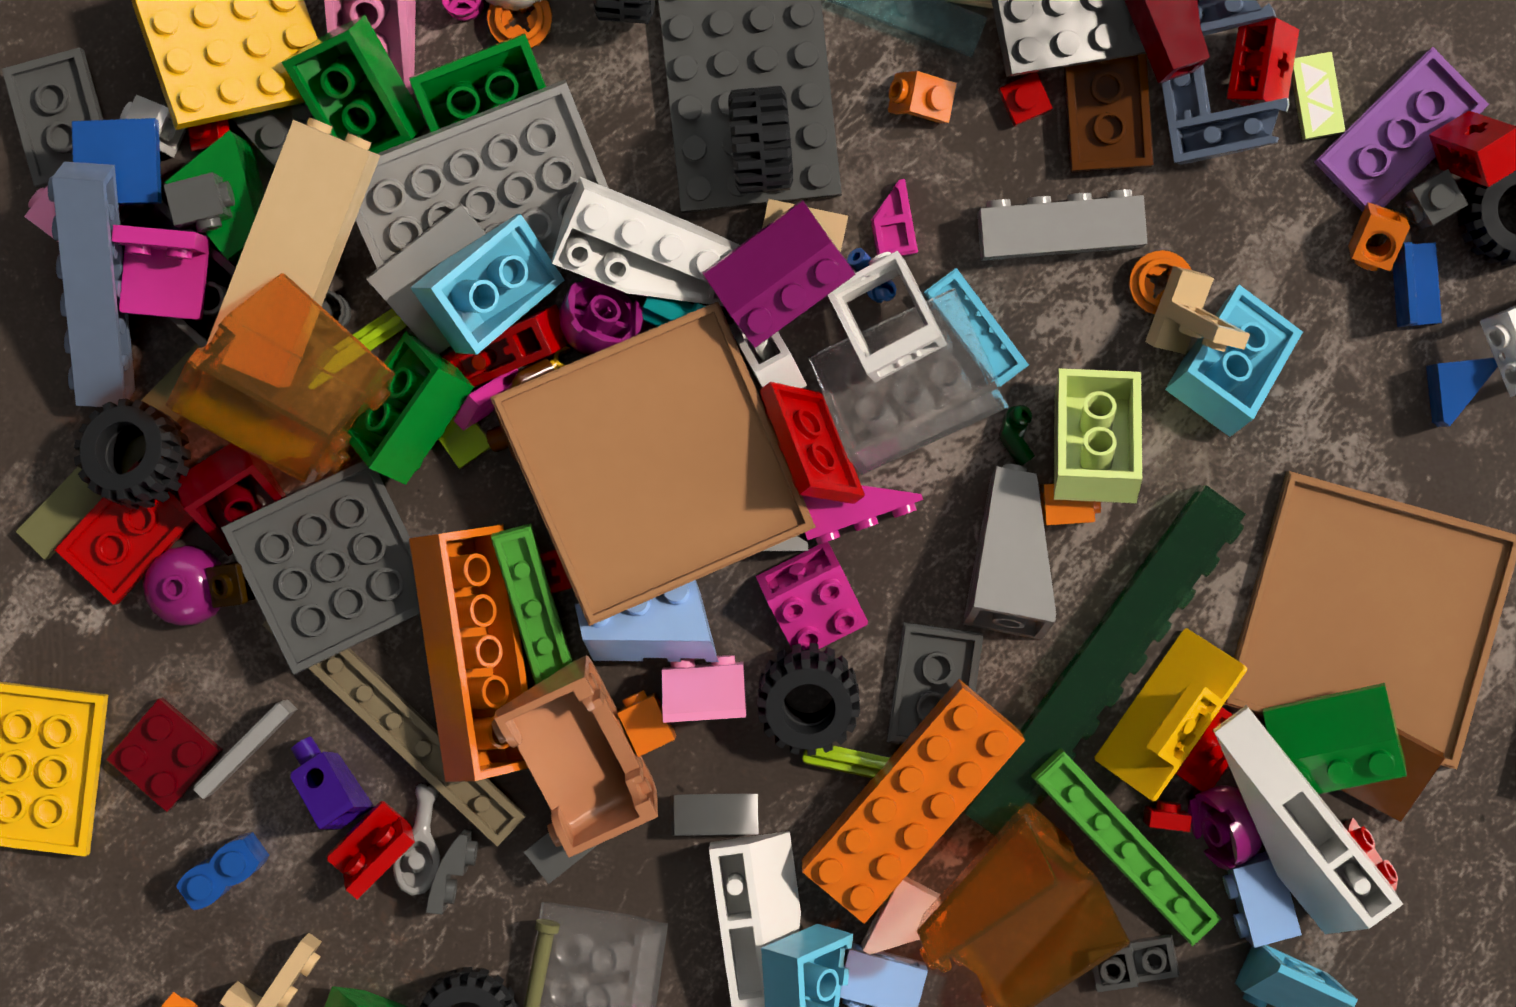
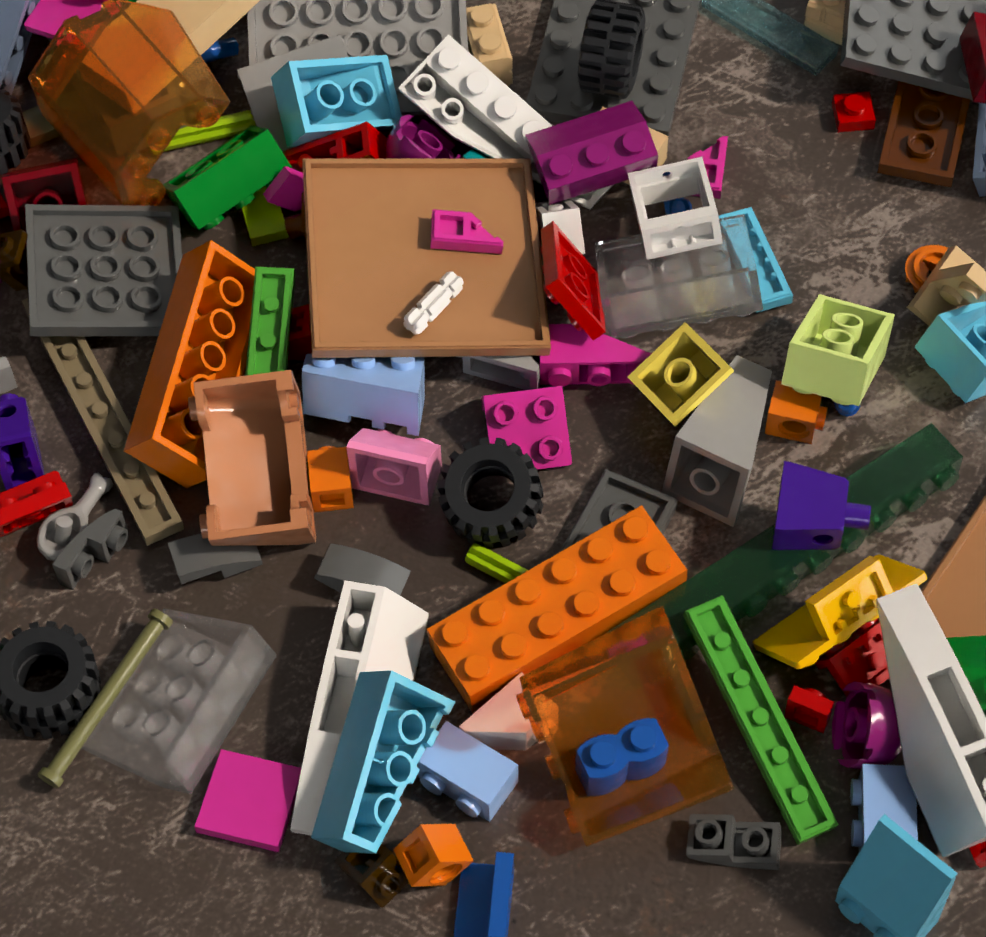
camera: 15 degrees right, 30 degrees down
(616, 147) = (488, 41): none -> tan brick
(682, 426) = (461, 233): none -> dark pink tile
(686, 527) = (433, 302): none -> white axle
(922, 96) = (765, 82): orange bracket -> none
(956, 518) = (680, 374): none -> light yellow slope
(1010, 940) = (630, 755): none -> blue brick
(1013, 432) = (764, 345): dark green arm -> none
(1061, 227) = (856, 203): light grey brick -> none
(1124, 634) = (814, 510): none -> dark purple torso

